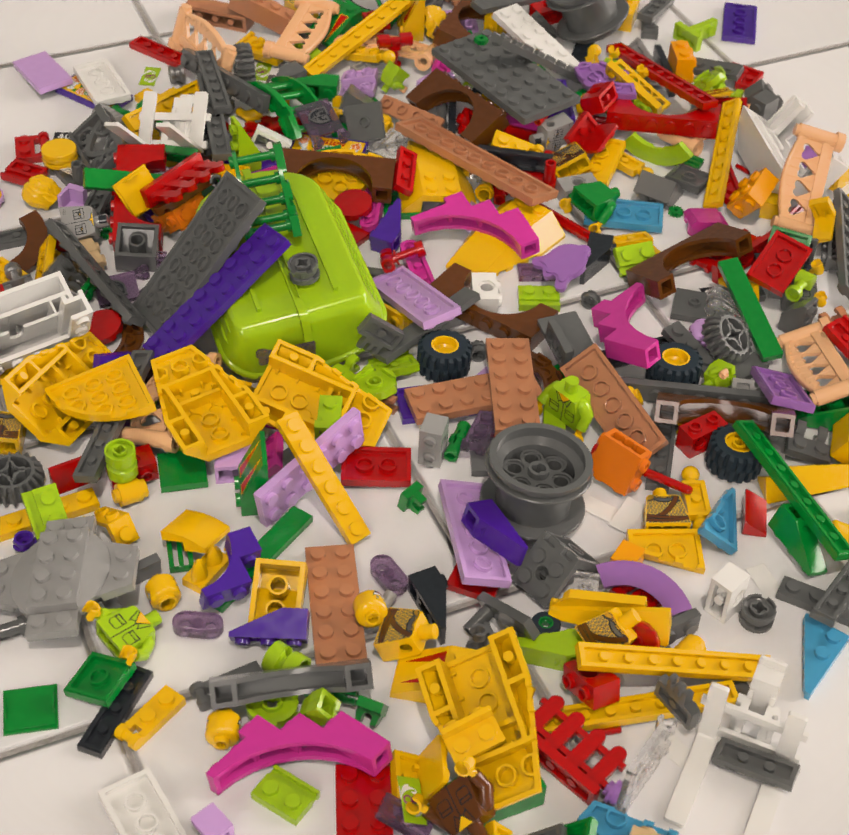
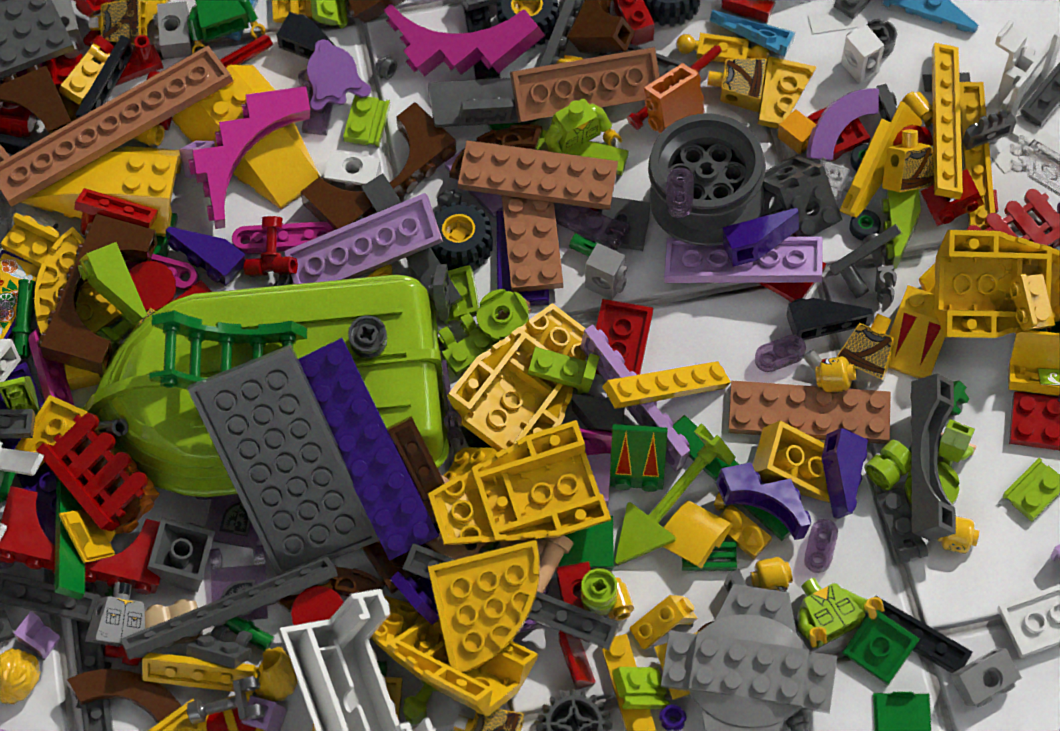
camera: 75 degrees left, 20 degrees up
(83, 767) = (970, 677): none -> light grey brick
(150, 718) = (931, 602): yellow plate -> none
(219, 327) = (416, 456): none -> reddish brown tile
(265, 745) = (986, 496): dark pink arch -> none
(271, 516) = (643, 532): none -> lime piece
(339, 166) = (110, 277): none -> lime slope
(378, 145) = (29, 239): none -> yellow bracket
(412, 498) = (676, 311): green tile -> none
(497, 439) = (680, 190): none -> clear purple plate

